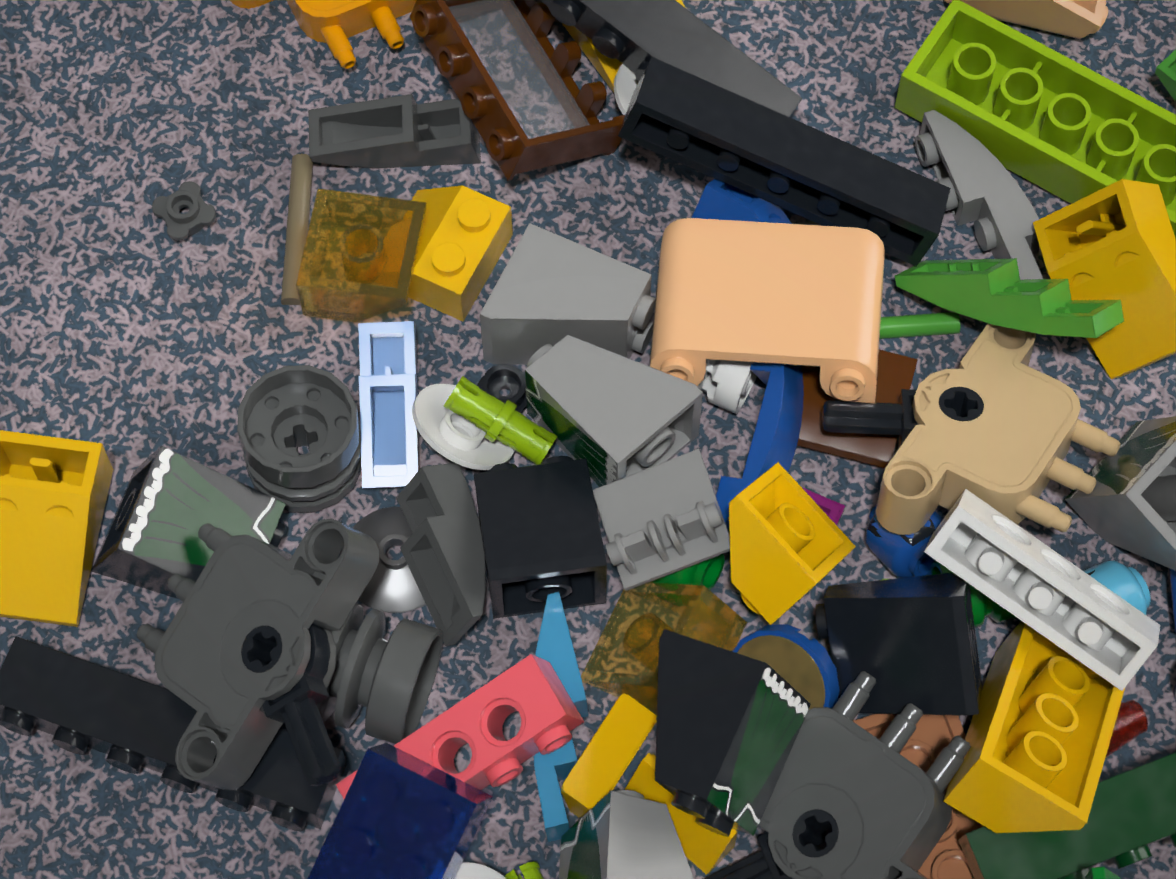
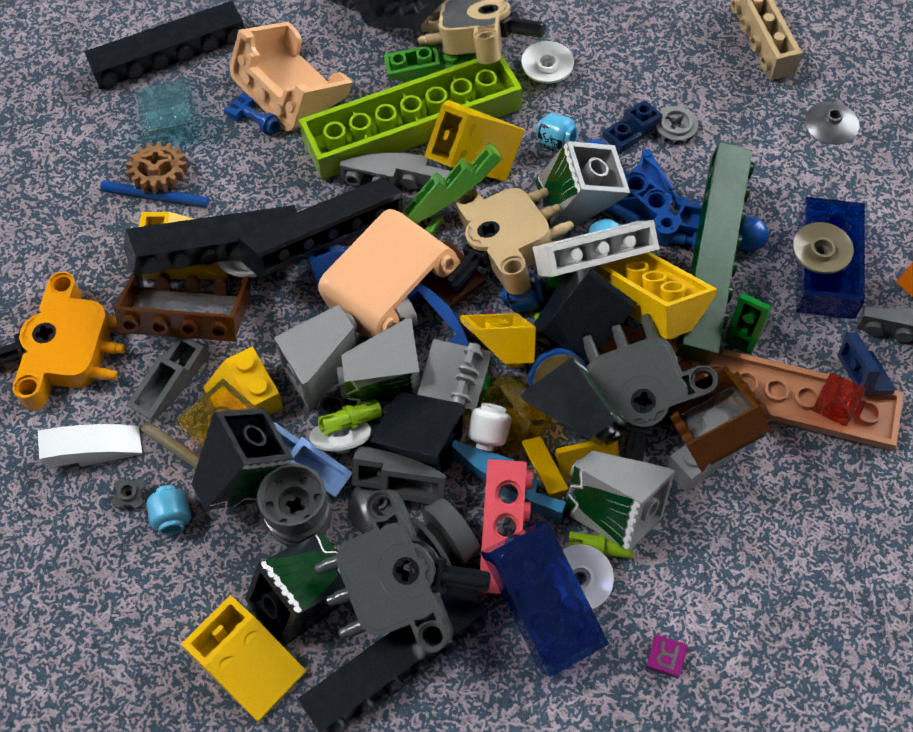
camera: 55 degrees left, 5 degrees down
(189, 278) = (168, 510): none -> medium azure head
(218, 106) = (88, 444): none -> white slope
(310, 306) = (237, 457): none -> black slope
(612, 627) = (489, 426): none -> white head

